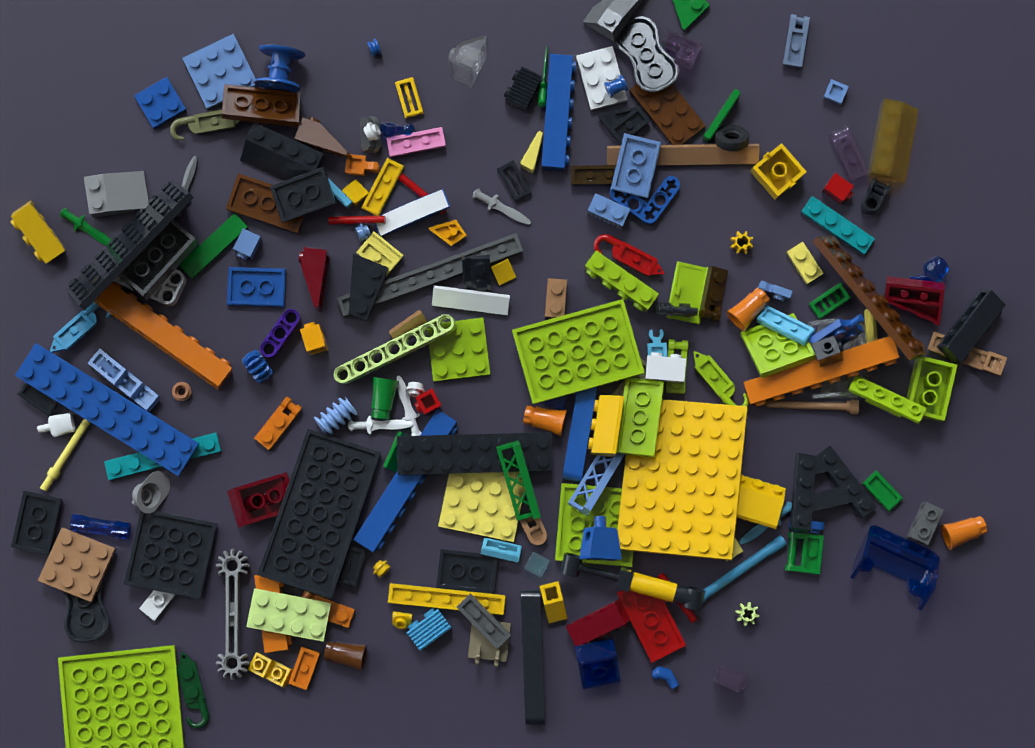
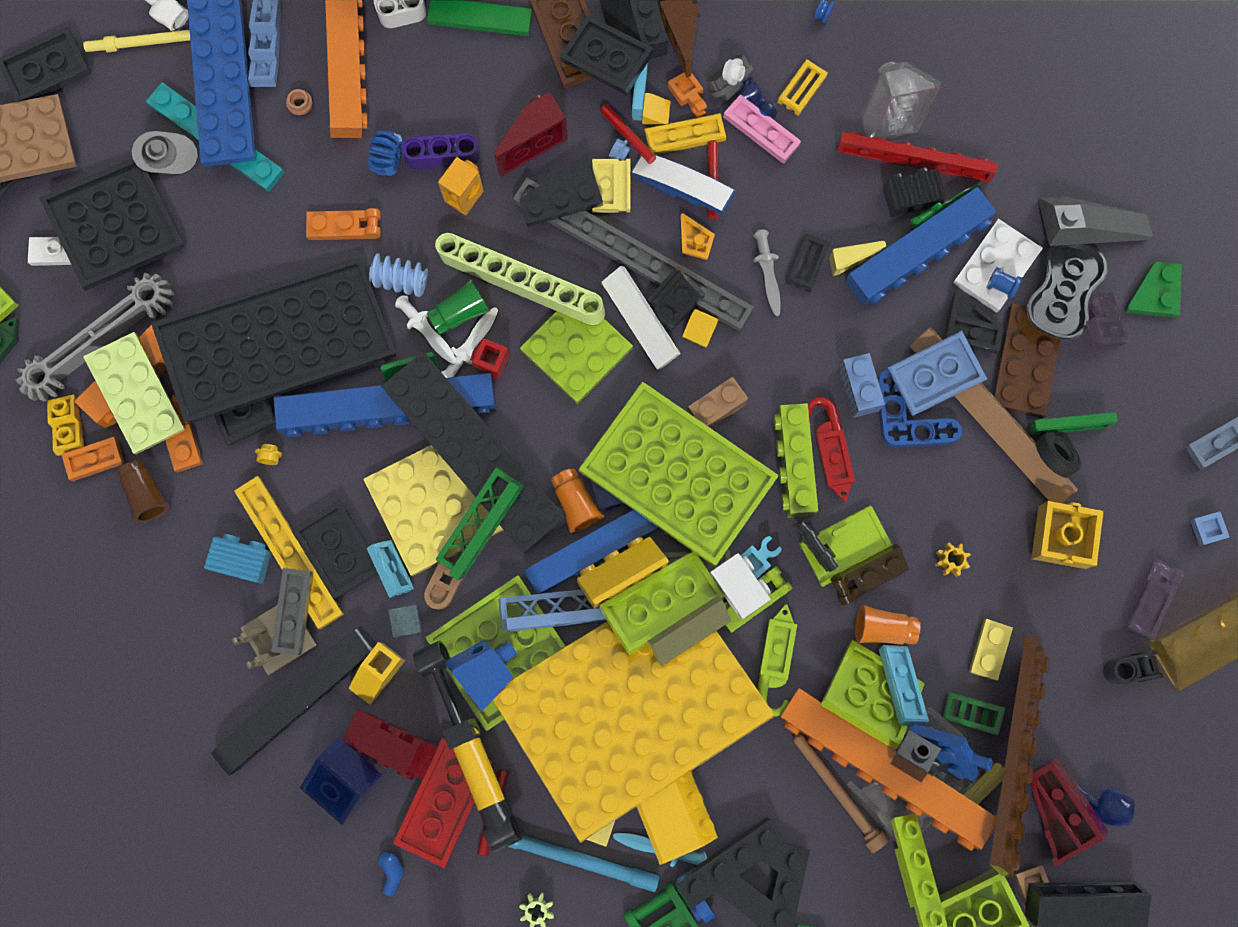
camera: 55 degrees right, 5 degrees down
(100, 526) = (88, 130): clear blue axle -> none
(247, 244) = (508, 45): medium blue brick -> none
(256, 287) = (472, 91): blue tile -> none
(258, 499) = (242, 265): dark red slope -> none
(401, 620) = (228, 521): yellow plate -> none
(412, 322) = (565, 272): medium nougat slope -> none
(414, 389) = (495, 333): white plate -> none
(508, 66) = (915, 157): none -> red plate
(592, 174) = (885, 337): dark brown plate -> none
(667, 415) = (689, 630): none -> olive tile
(779, 293) = (932, 647): medium blue plate -> none
(837, 225) = (1064, 653): teal plate -> none
(838, 189) = (1106, 619): red brick -> none

